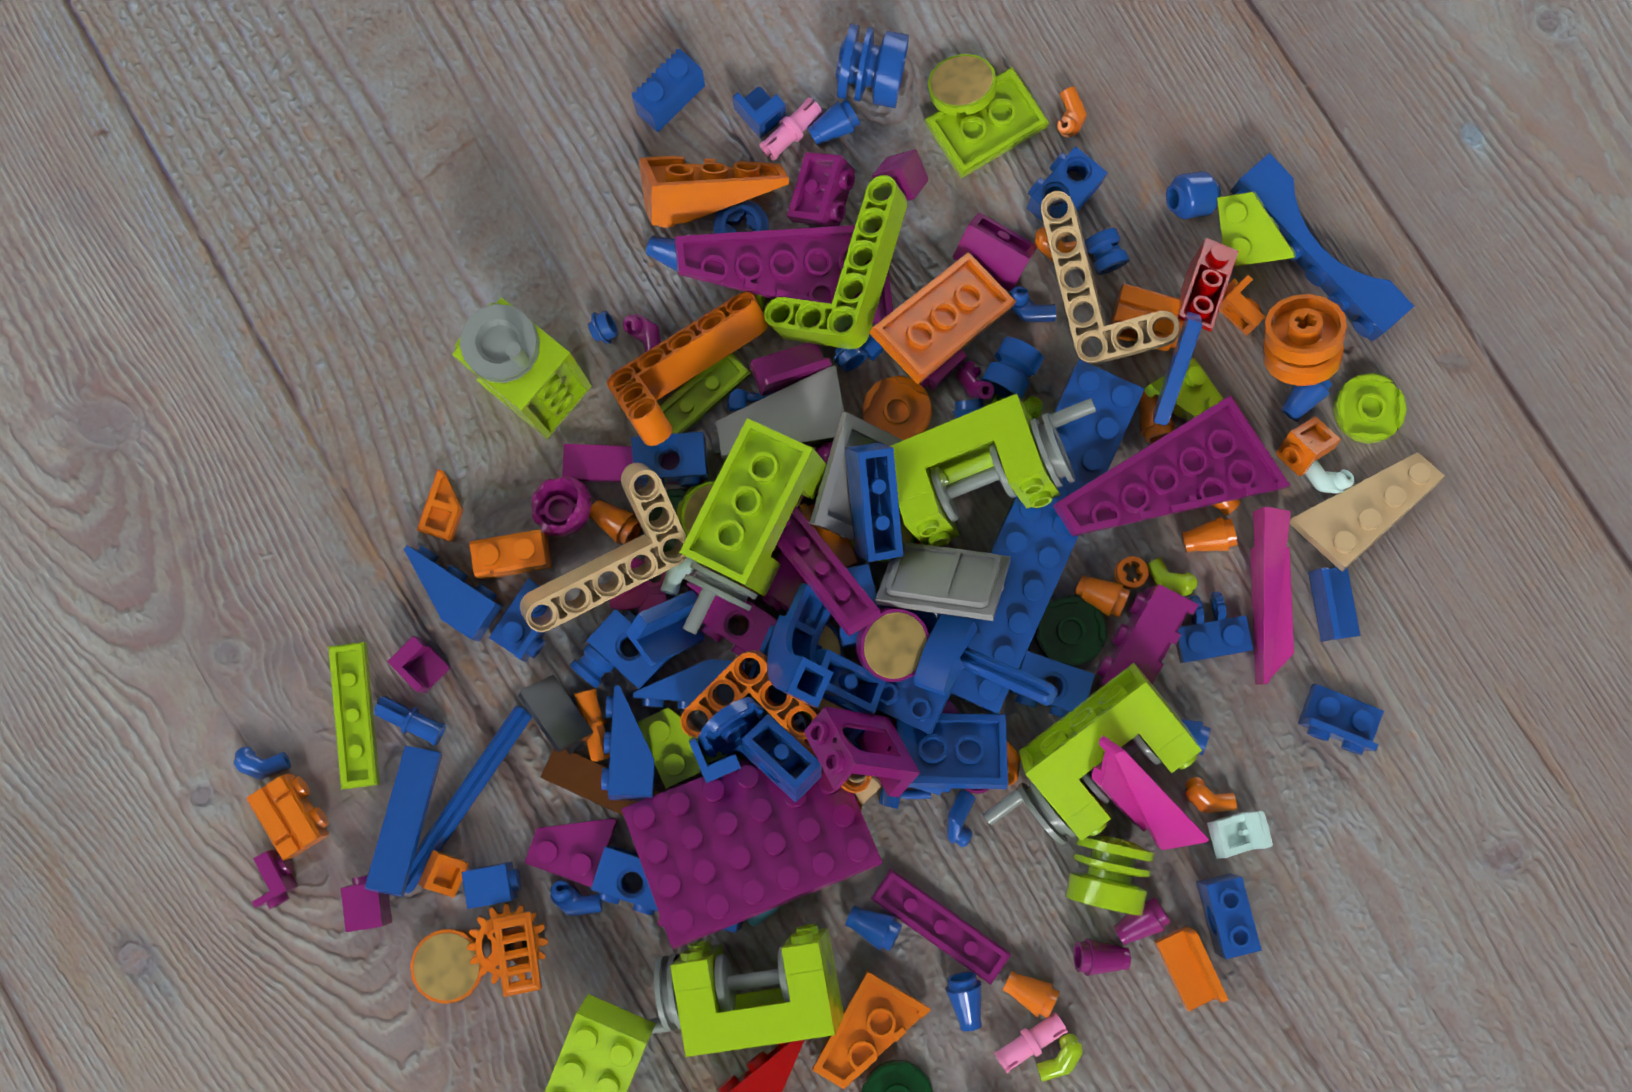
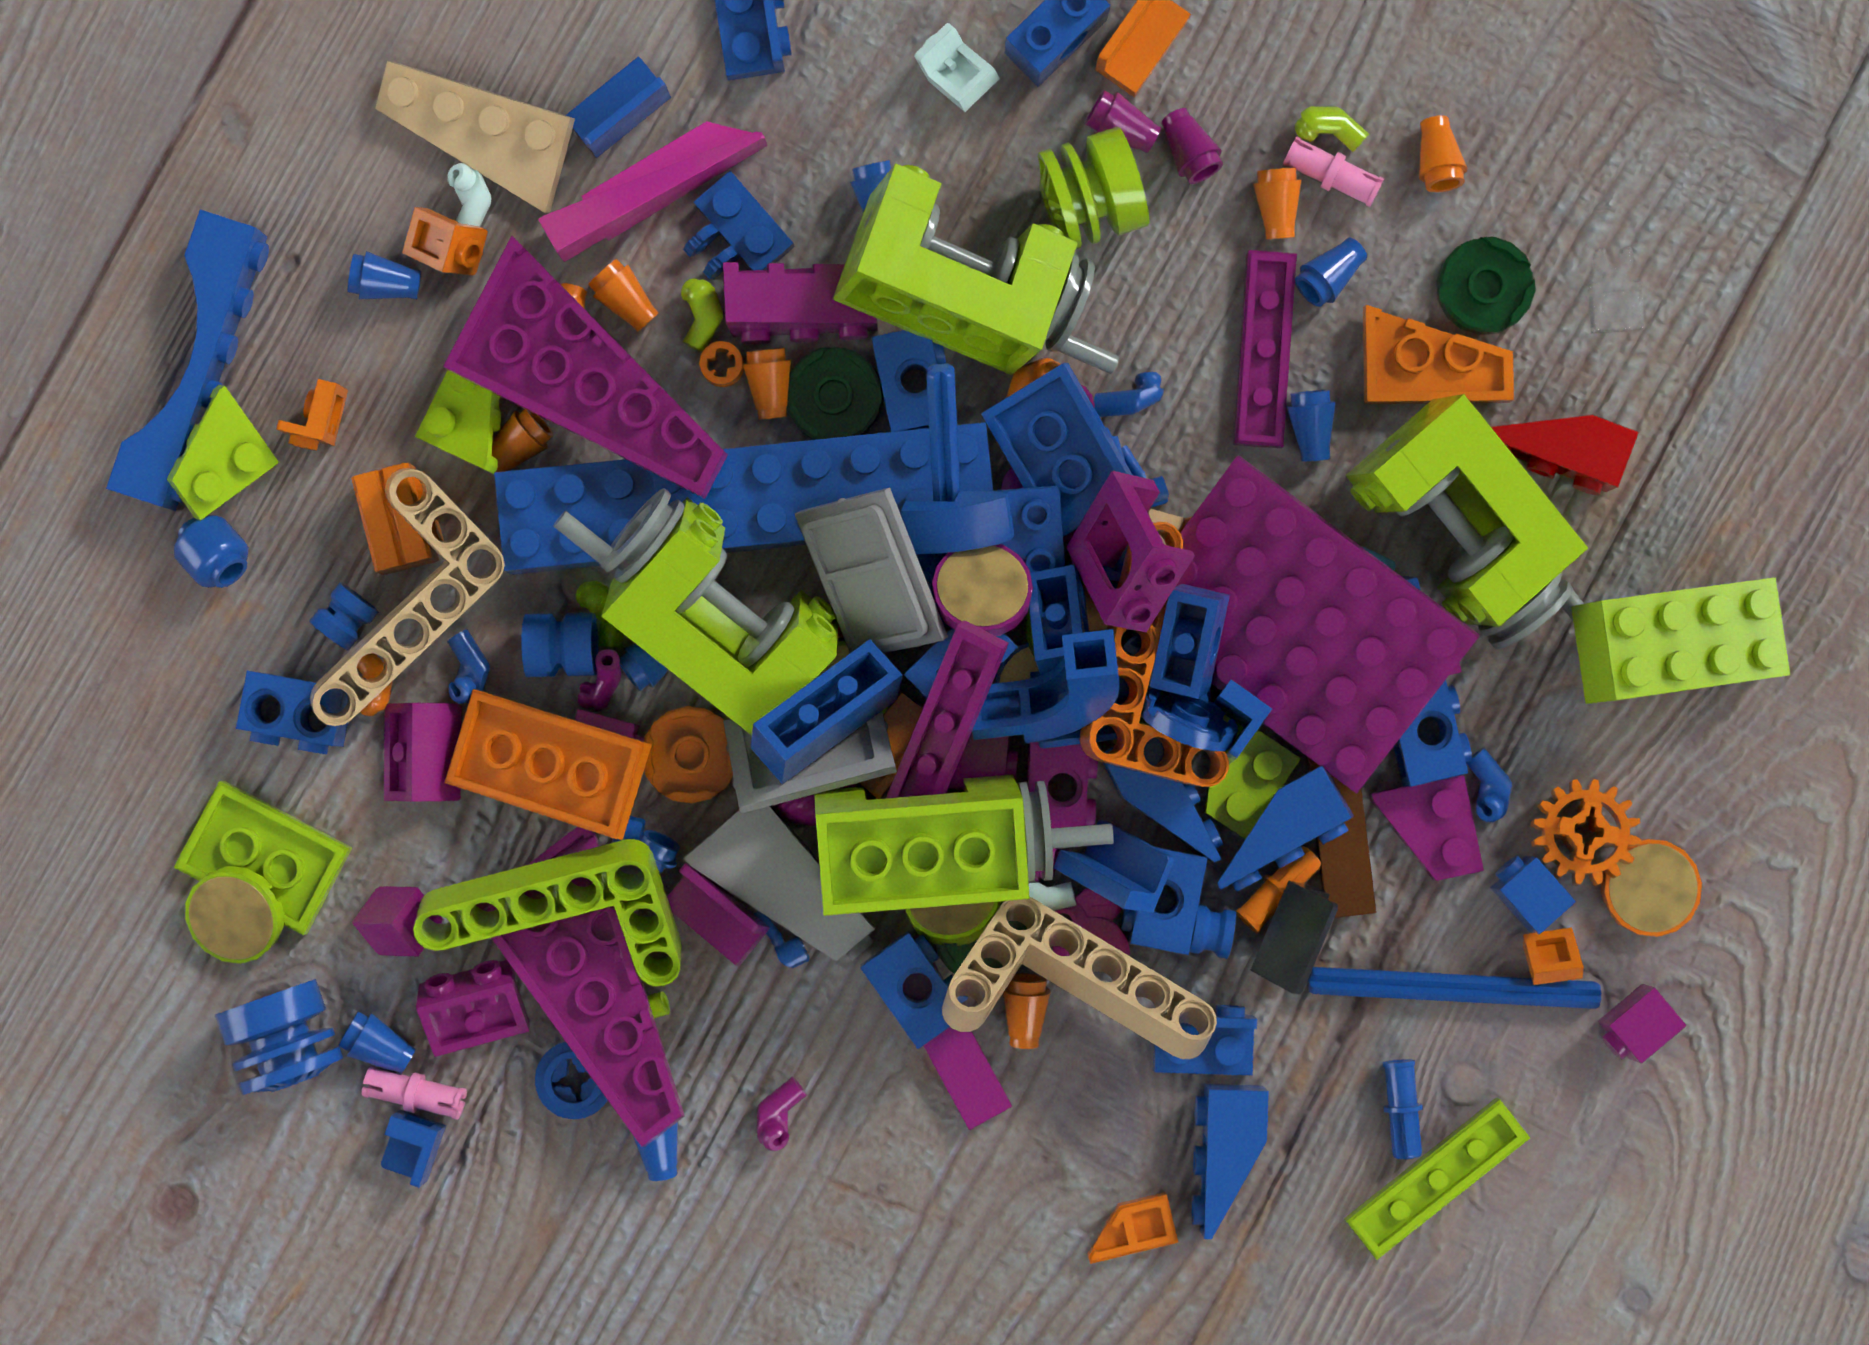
camera: 120 degrees left, 5 degrees up
(259, 768) = (1564, 1249): blue arm -> none
(277, 878) = (1669, 1150): magenta bracket -> none
(289, 815) = (1596, 1178): orange brick -> none
(403, 821) = (1522, 1039): blue tile -> none
(419, 664) = (1333, 1137): magenta panel -> none
(510, 554) = (1140, 1109): orange brick -> none
(521, 365) = (917, 1230): piece -> none
(523, 986) = (1622, 780): orange slope -> none
(561, 506) = (1047, 1085): magenta hair -> none
(603, 327) = (799, 1171): blue plate -> none
(668, 90) = (455, 1273): blue brick -> none
(680, 359) = (786, 1052): orange beam -> none
(686, 191) = (565, 1167): orange wedge -> none
(703, 393) = (811, 1003): lime tile -> none
(1074, 115) = (191, 754): orange arm -> none
(1143, 799) = (988, 198): dark pink wedge -> none
(1177, 368) = (451, 445): blue tile -> none
(1206, 800) = (938, 128): orange arm -> none
(1207, 282) = (322, 471): red slope -> none
(1304, 339) = (320, 317): orange wheel -> none
(1369, 408) = (353, 194): lime tile -> none

